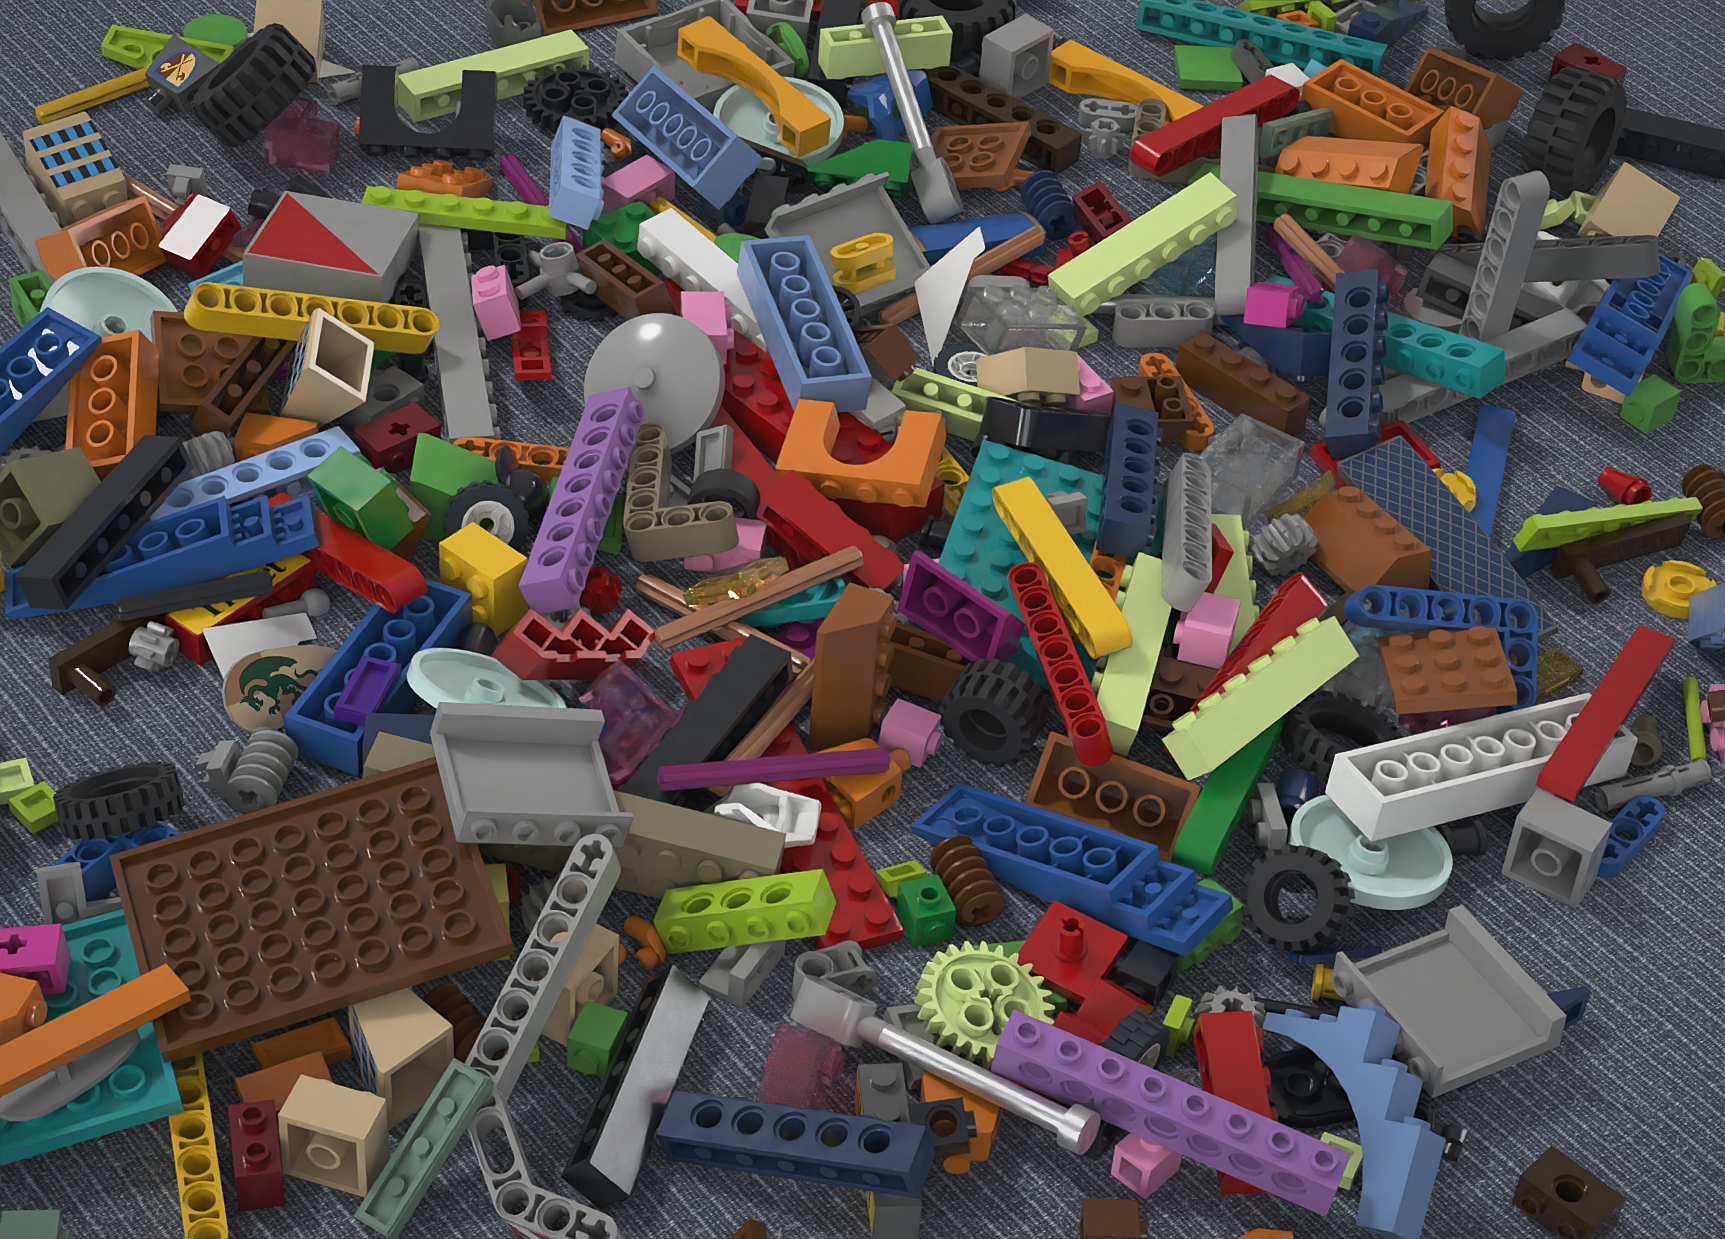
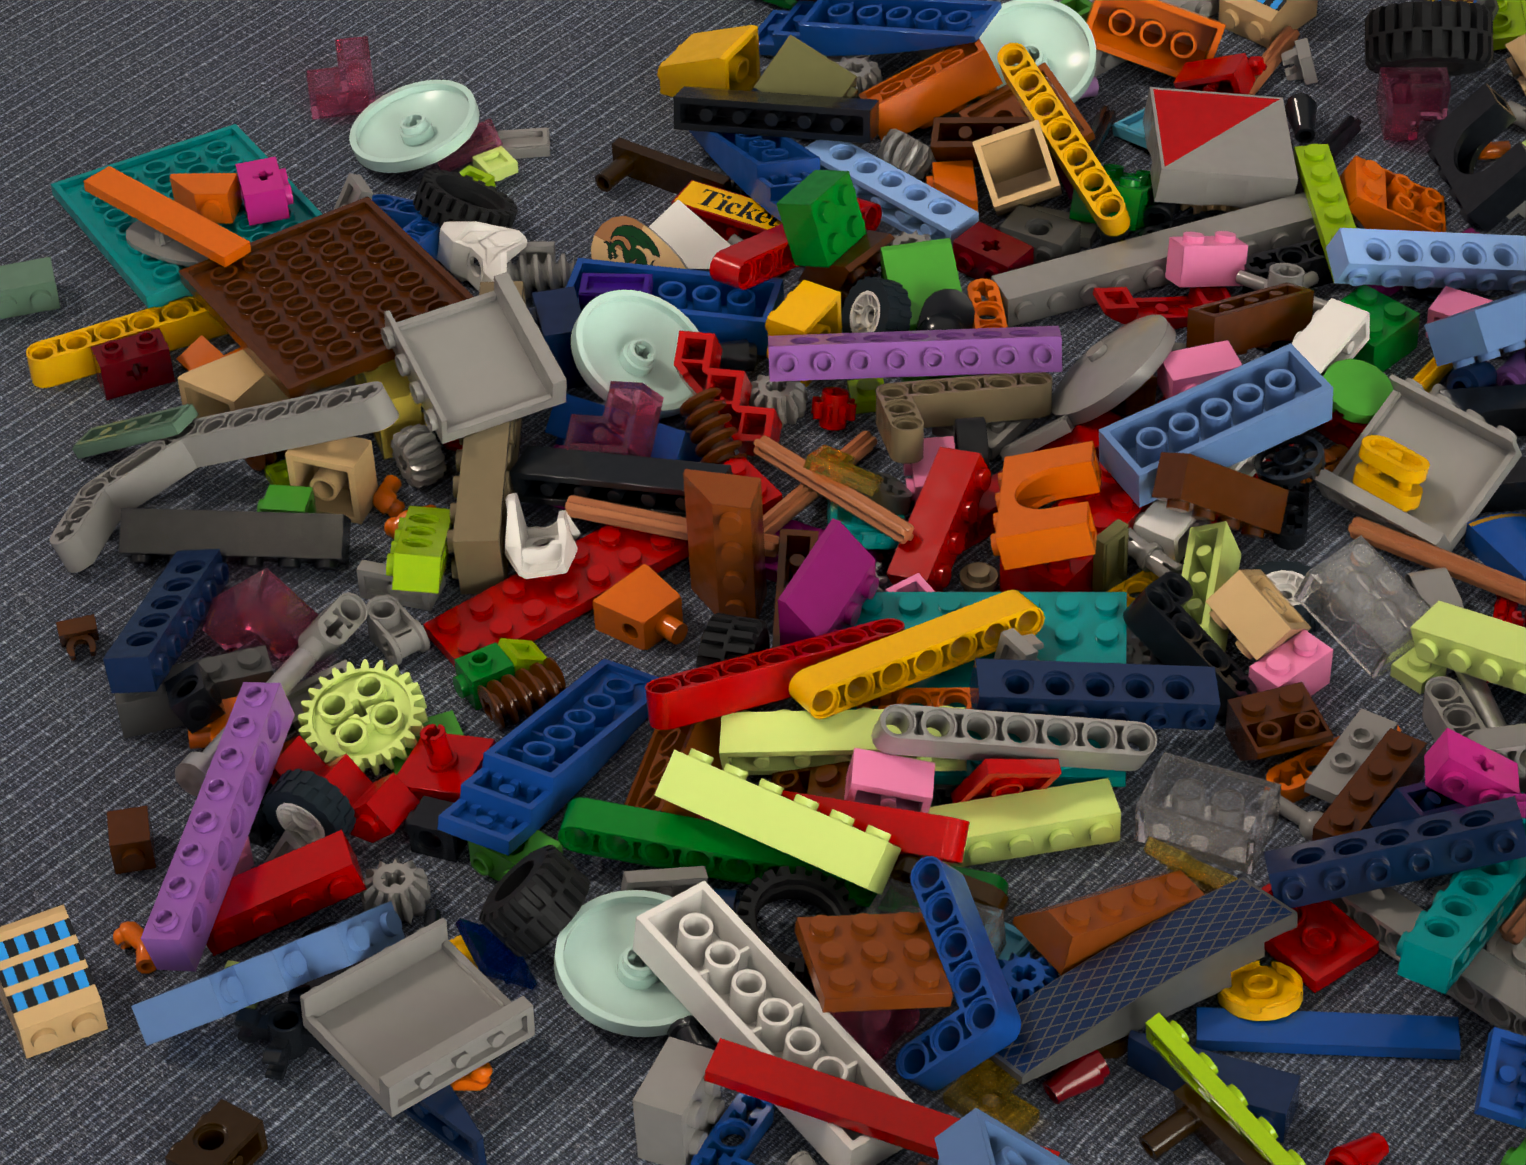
camera: 85 degrees right, 0 degrees up
(153, 646) = (664, 188): light grey gear -> none
(193, 596) = (711, 183): black axle -> none
(226, 780) = (487, 243): none -> white piece
(333, 1135) = (144, 378): tan brick -> none
(652, 660) = (709, 428): none -> reddish brown piece
(773, 769) = (590, 529): magenta axle -> none
(911, 729) = (697, 616): bright pink brick -> none
(941, 289) = (1391, 519): white sticker -> none
(1179, 1023) = (378, 848): lime plate -> none
(1199, 385) = (1347, 755): none -> light grey plate
(1284, 544) = (1094, 856): light grey gear -> none

